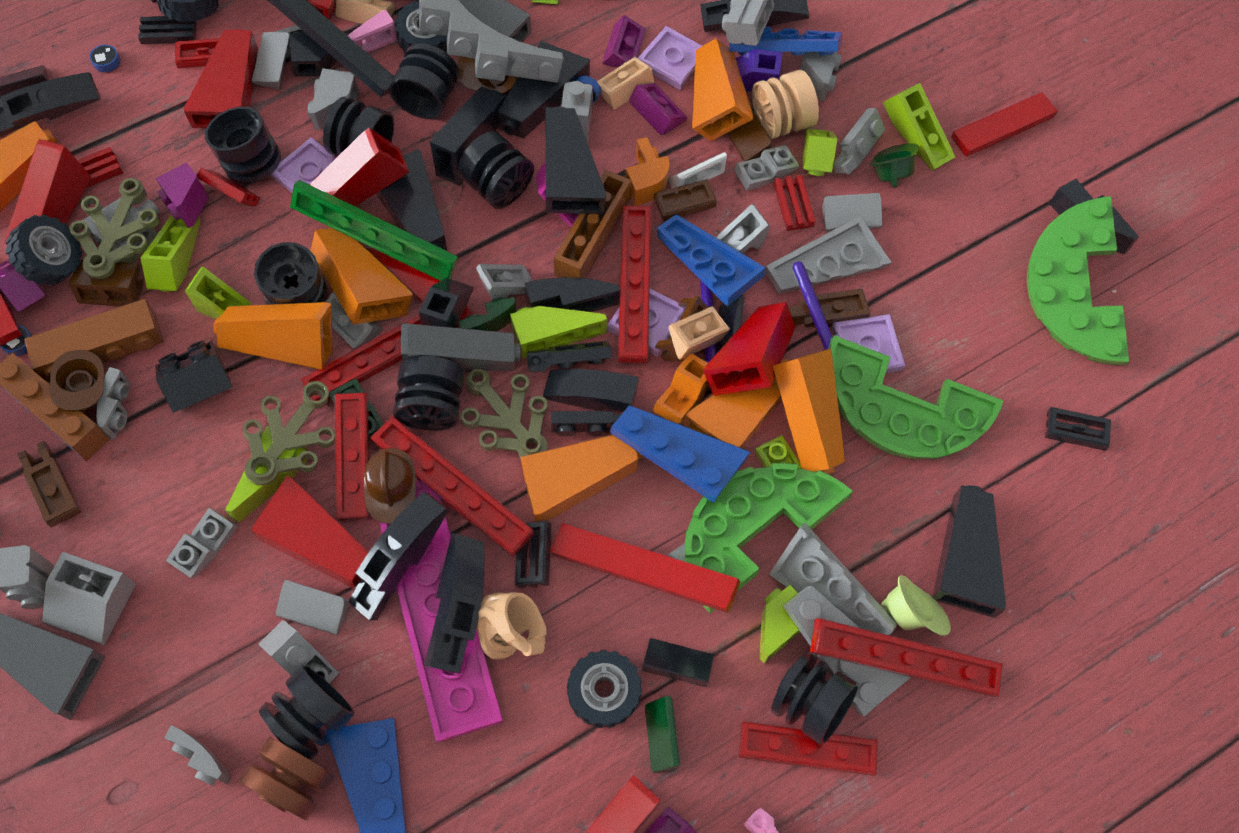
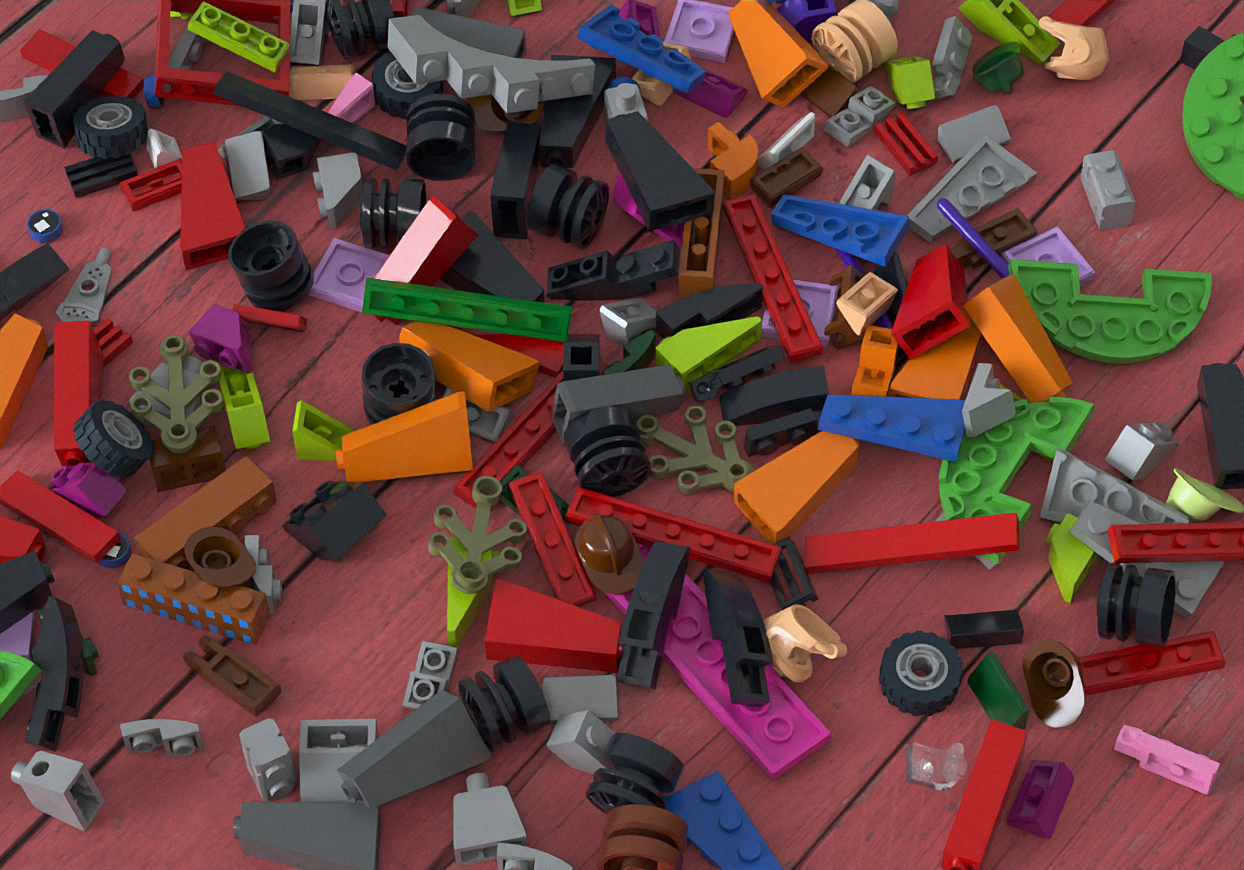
camera: 15 degrees left, 10 degrees down
(102, 132) = (83, 304): none -> light grey piece
(138, 617) = (415, 752): none -> dark grey slope
(178, 696) = (483, 820): none -> light grey torso
(219, 22) = (162, 148): none -> white slope
(232, 594) = (509, 700): none -> black wheel
(509, 241) = (611, 277): none -> black slope
(578, 784) = (934, 766): none -> clear bracket
(607, 54) = (631, 46): none -> blue wing
(715, 743) = (1054, 682): none -> reddish brown piece
(758, 458) = (986, 402): none -> light grey slope
(880, 543) = (1141, 449): none -> light grey slope
(943, 297) = (1107, 190): none -> light grey brick
(971, 169) = (1084, 50): none -> light nougat helmet

